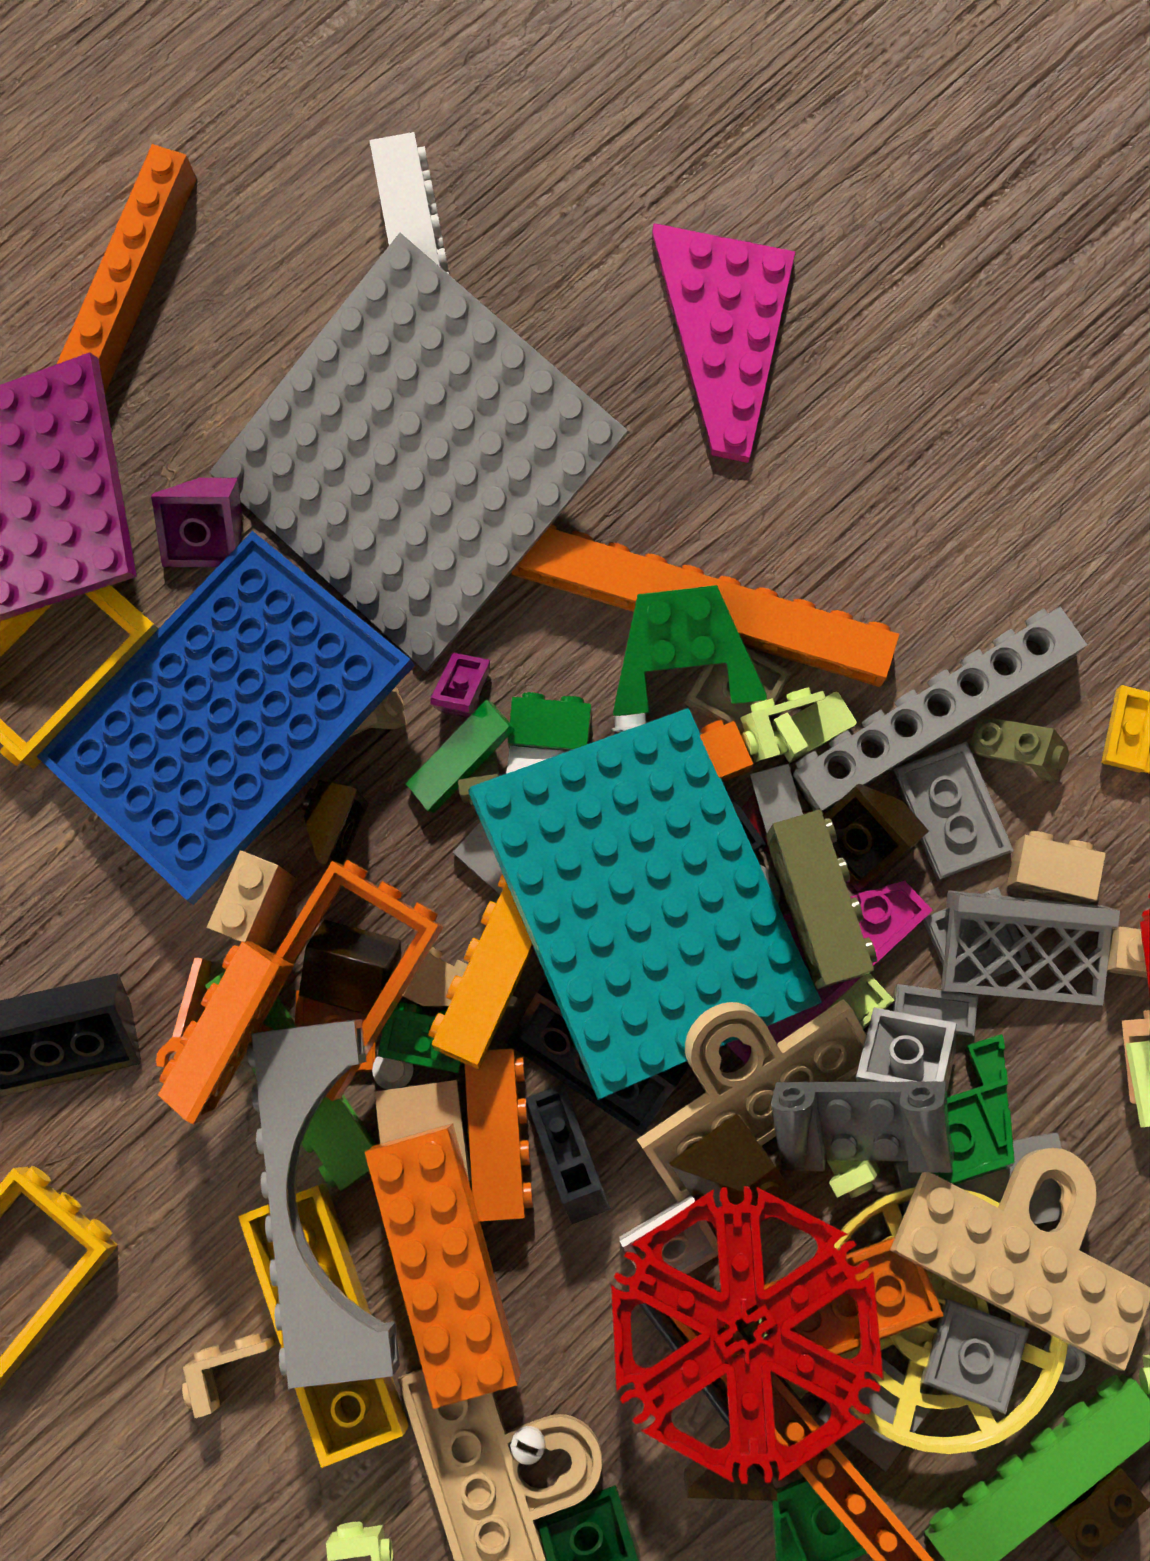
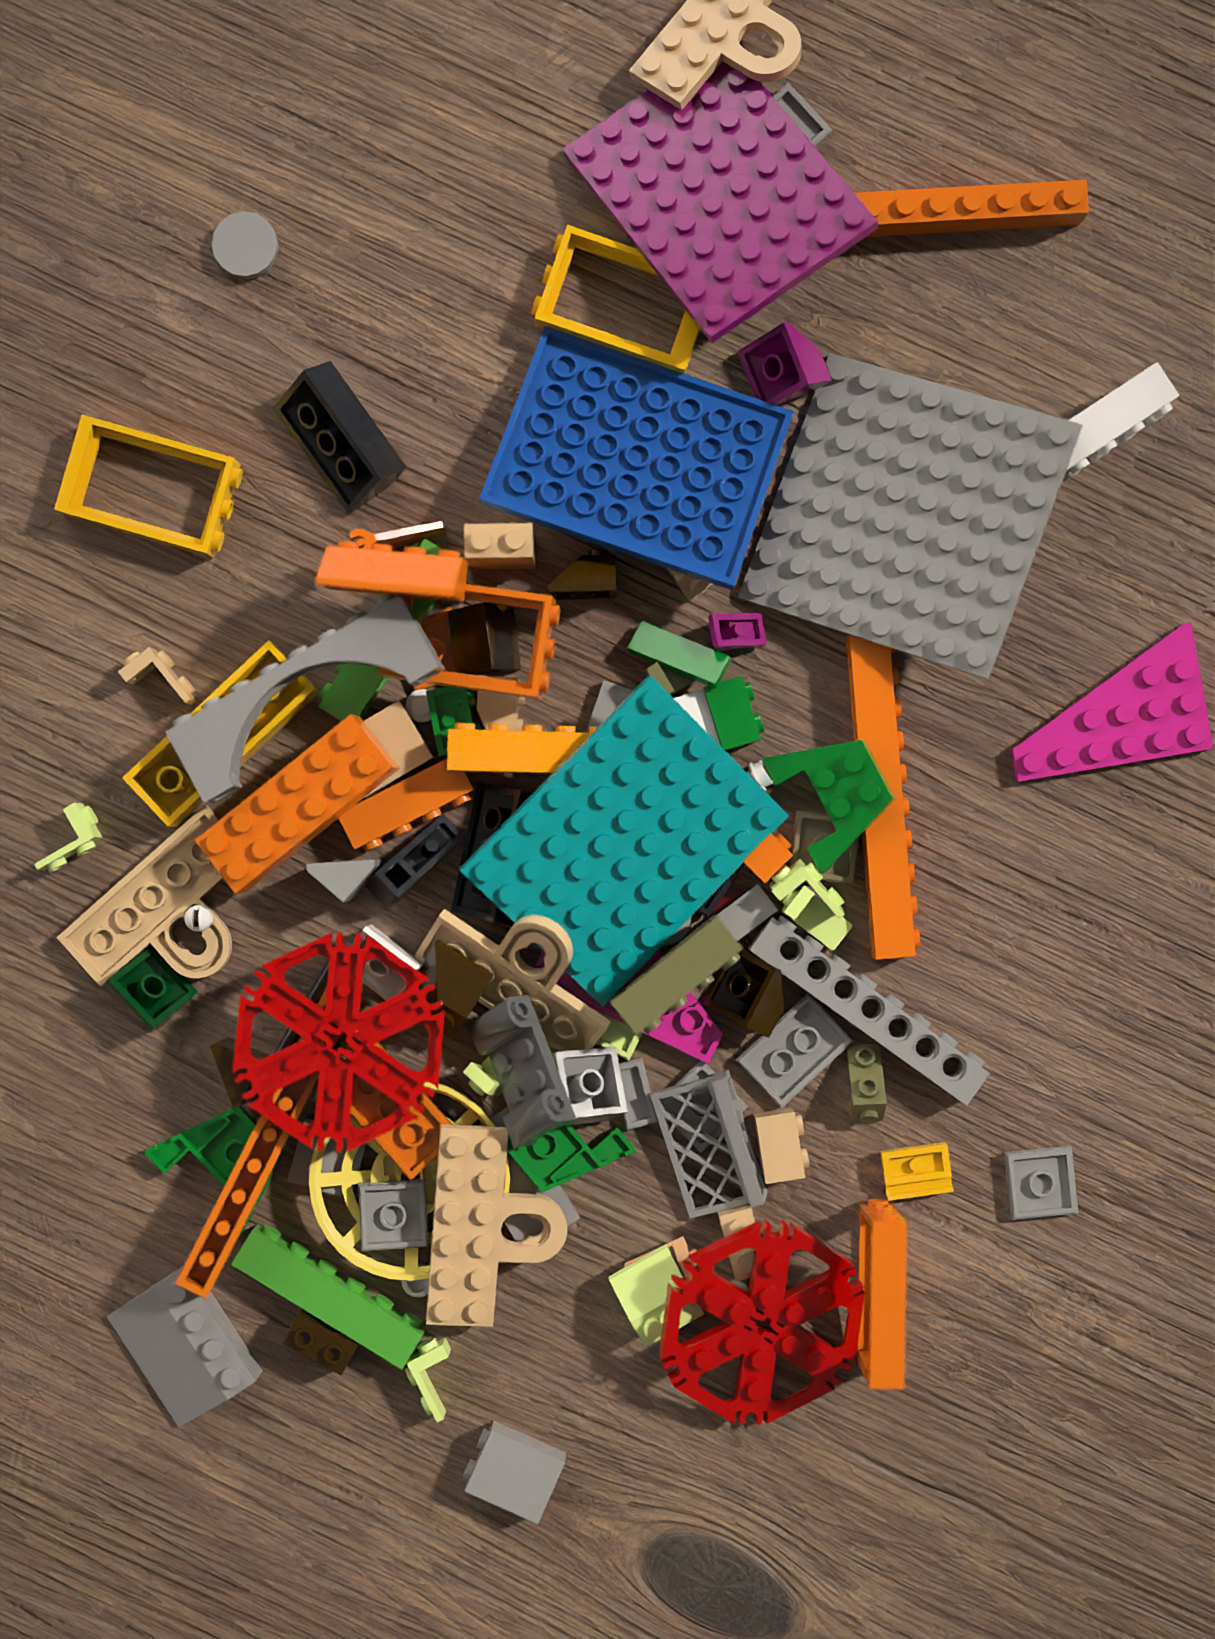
camera: 65 degrees right, 10 degrees up
(551, 1243) = (346, 877): none -> light grey slope

